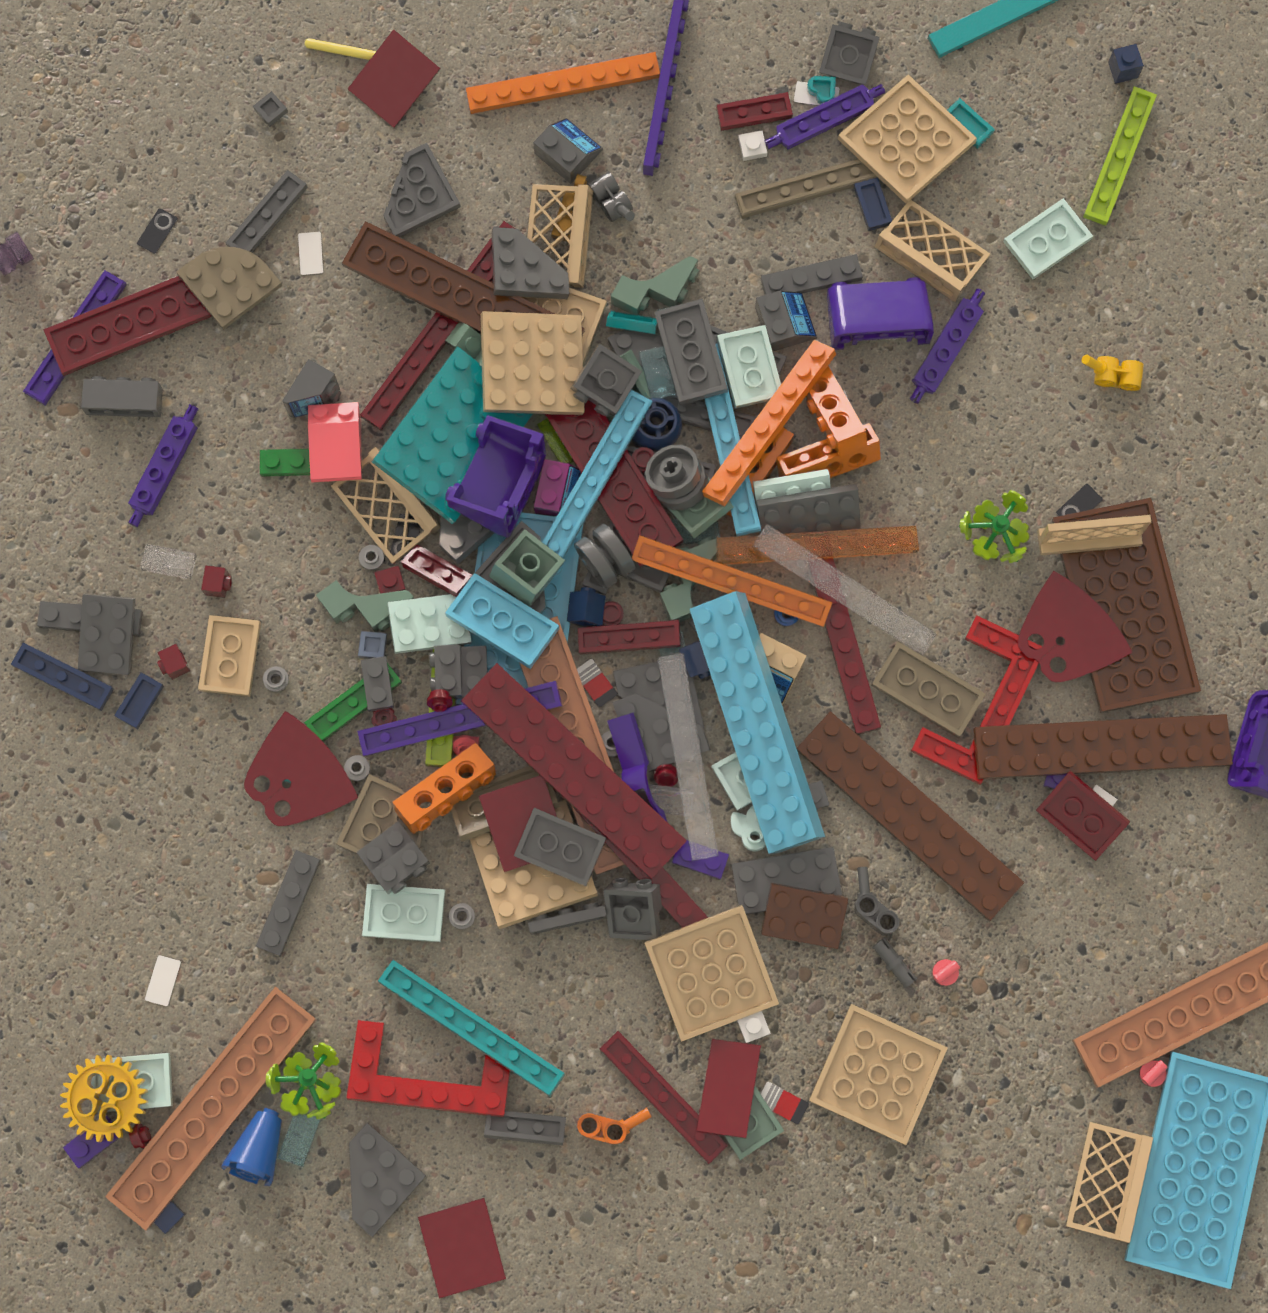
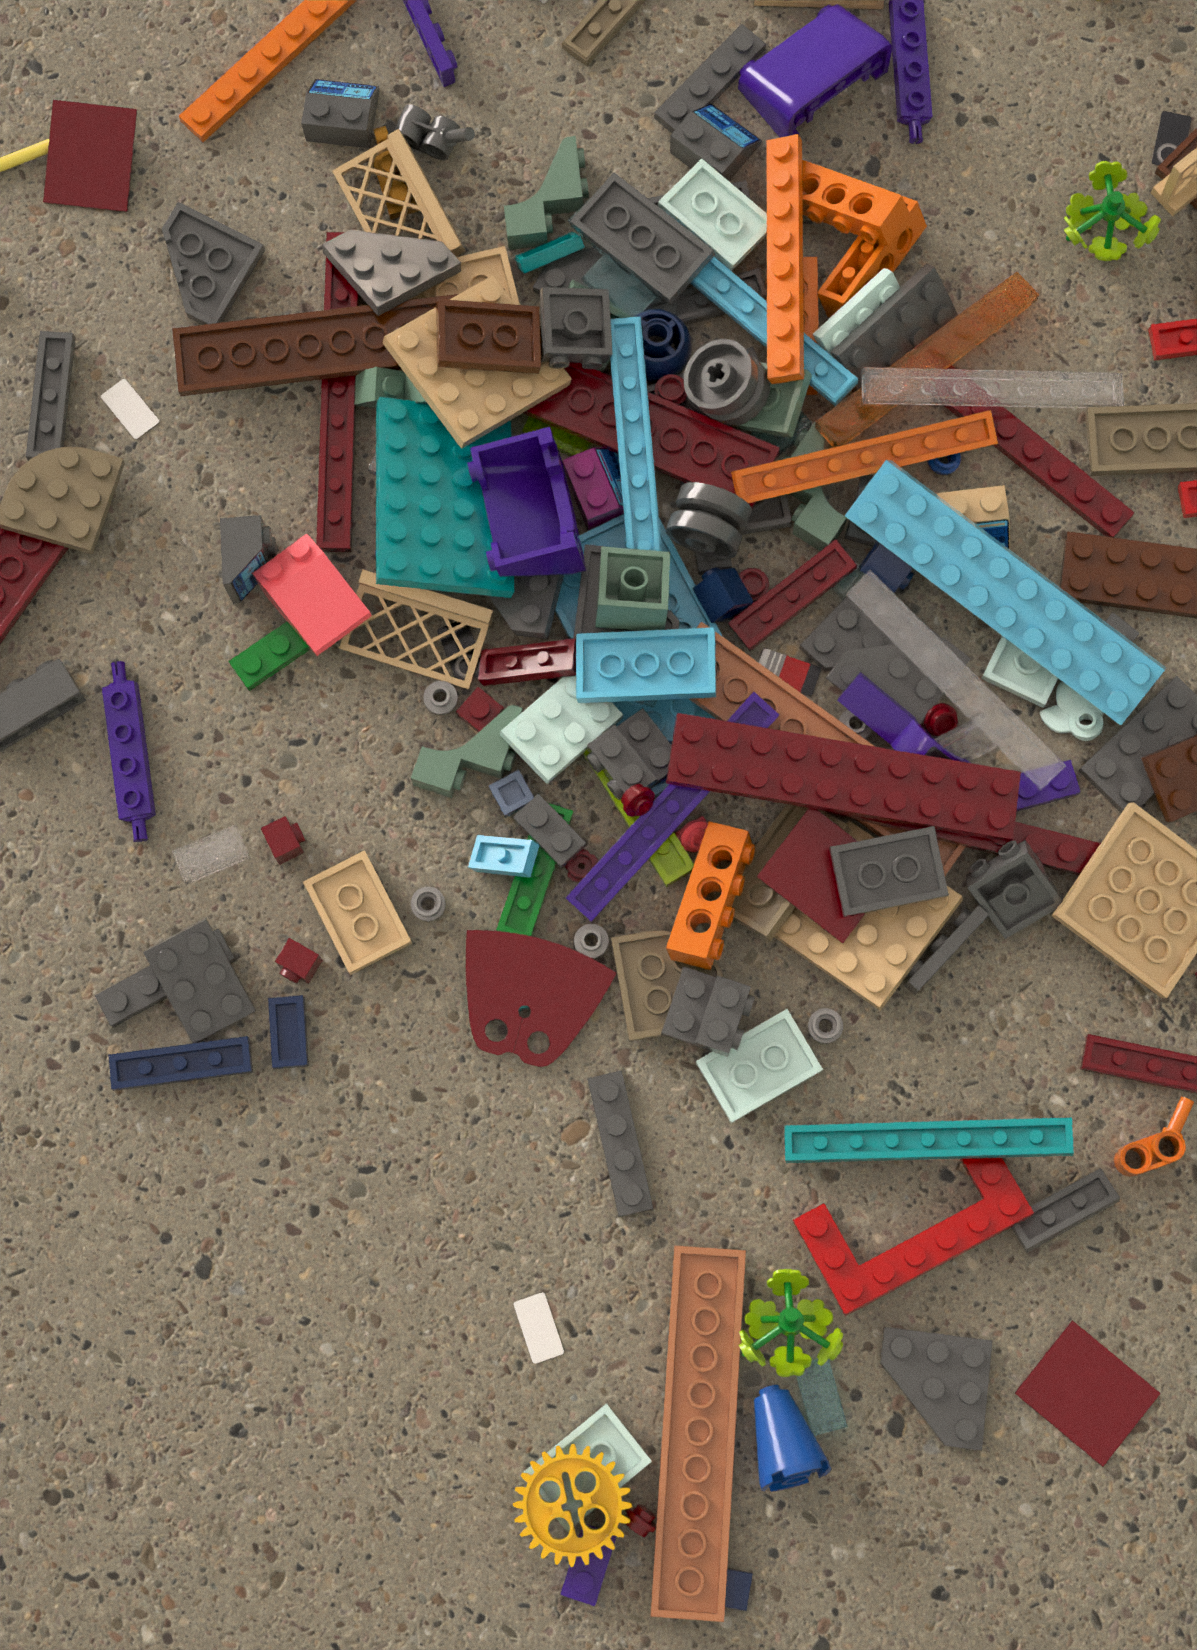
camera: 30 degrees left, 0 degrees up
(339, 680) = (503, 856): none -> medium azure plate
(546, 352) = (488, 336): none -> reddish brown plate

